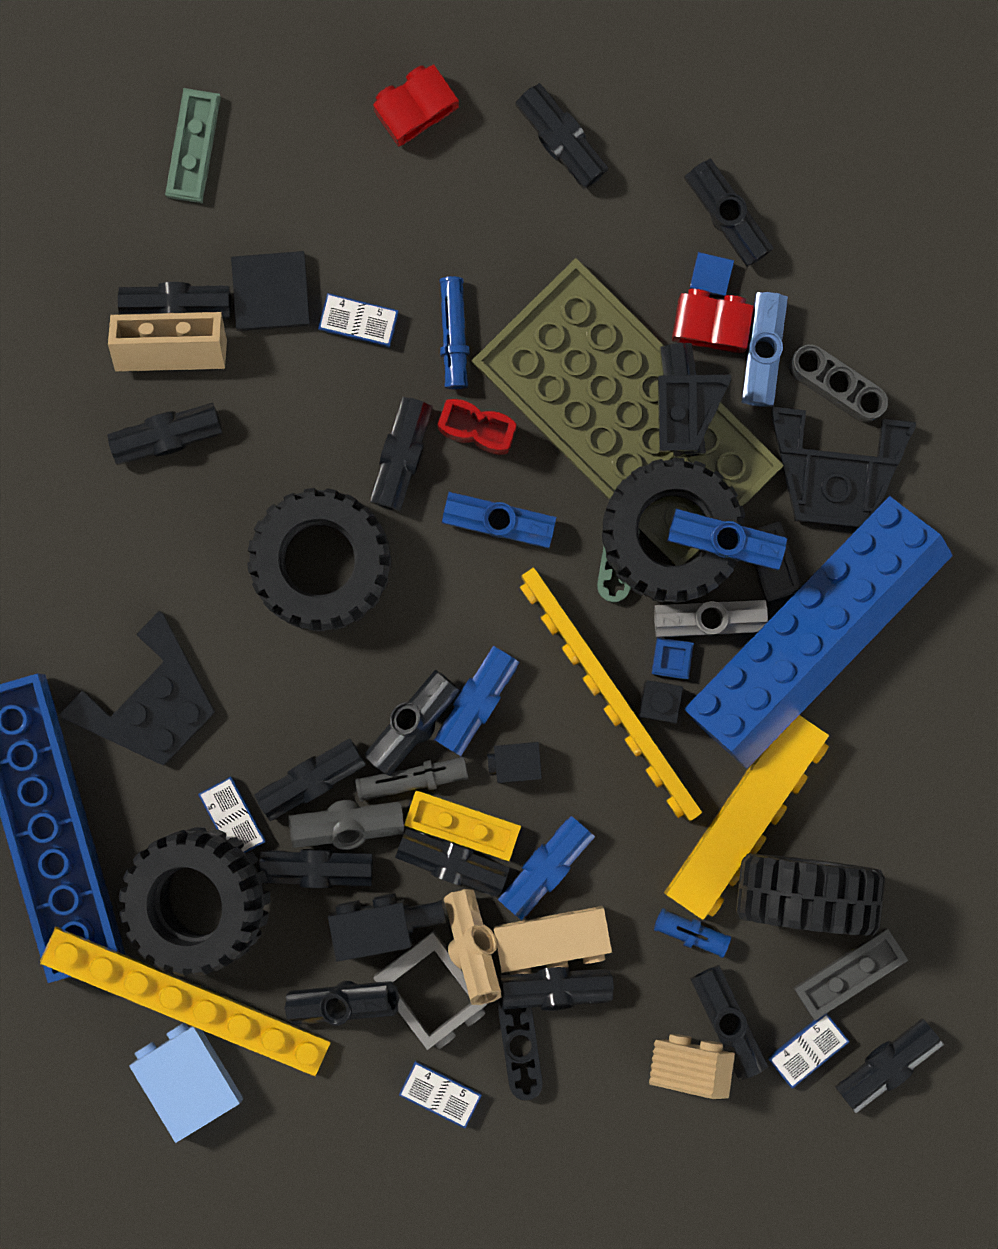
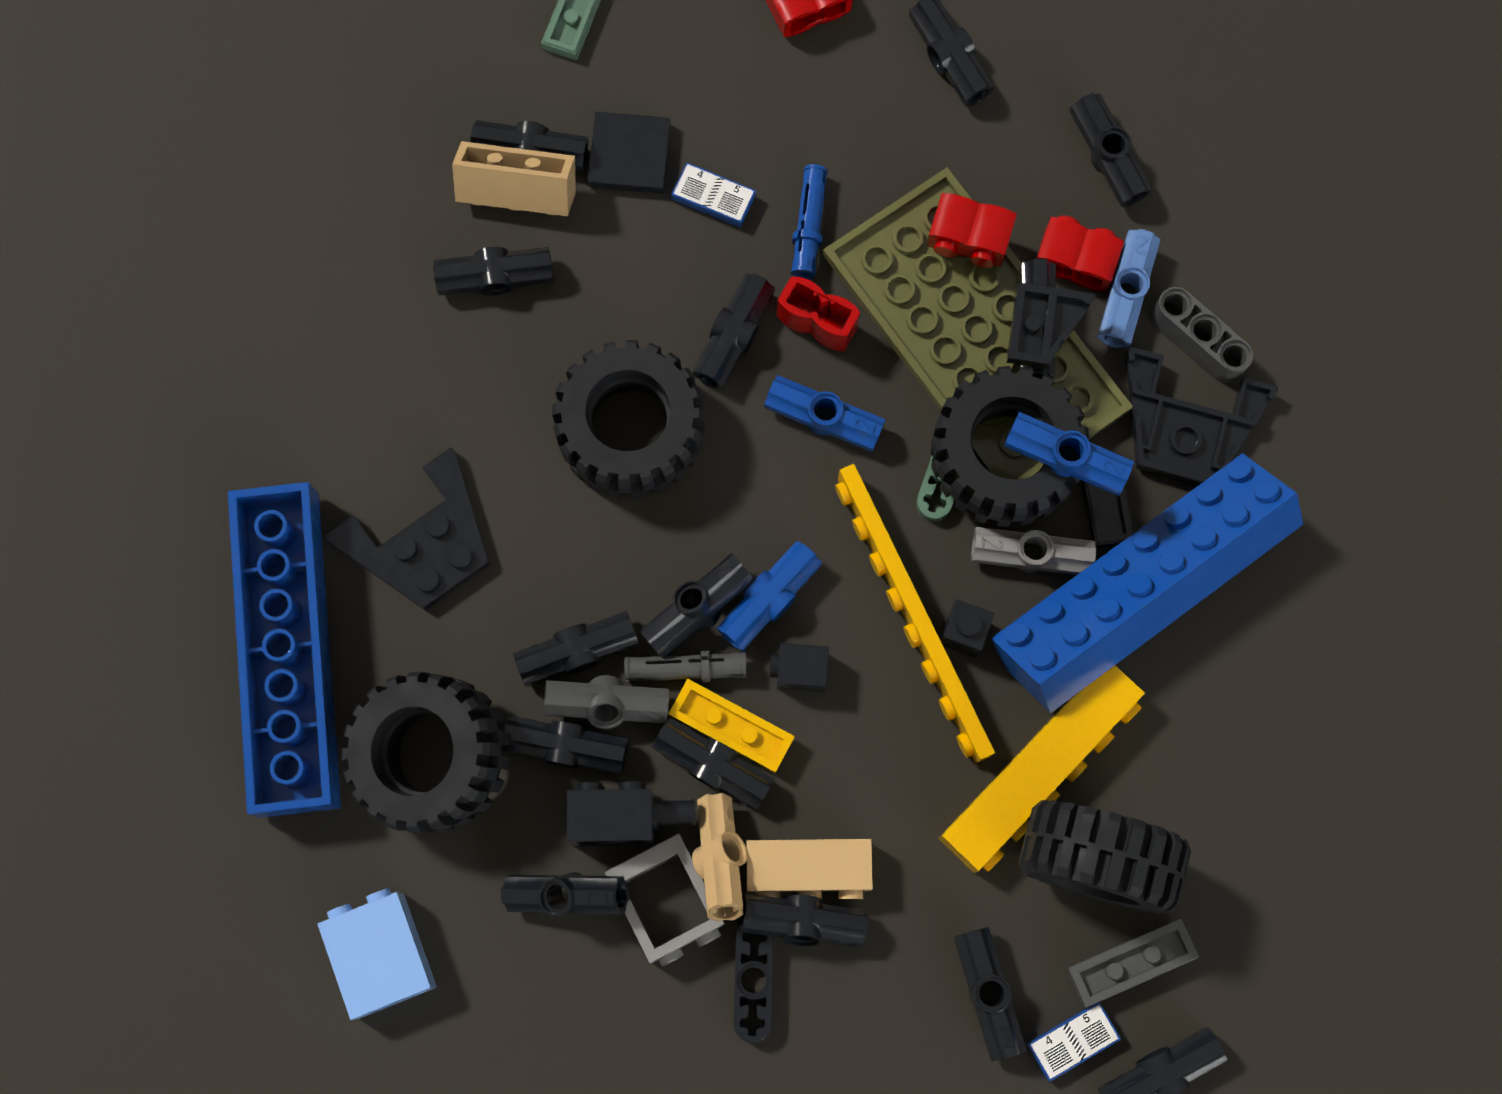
camera: 10 degrees right, 10 degrees down
(184, 1001) = (393, 861): yellow plate -> none
(232, 813) = (485, 670): white tile -> none
(440, 1094) = (655, 1019): white tile -> none
(546, 867) = (814, 787): blue piece -> none
(608, 322) = (971, 230): none -> red brick
(672, 658) = (985, 588): blue tile -> none
(692, 1067) = (942, 1036): tan brick -> none
(711, 274) = (1085, 206): blue tile -> none
(716, 943) = (988, 900): blue pin -> none

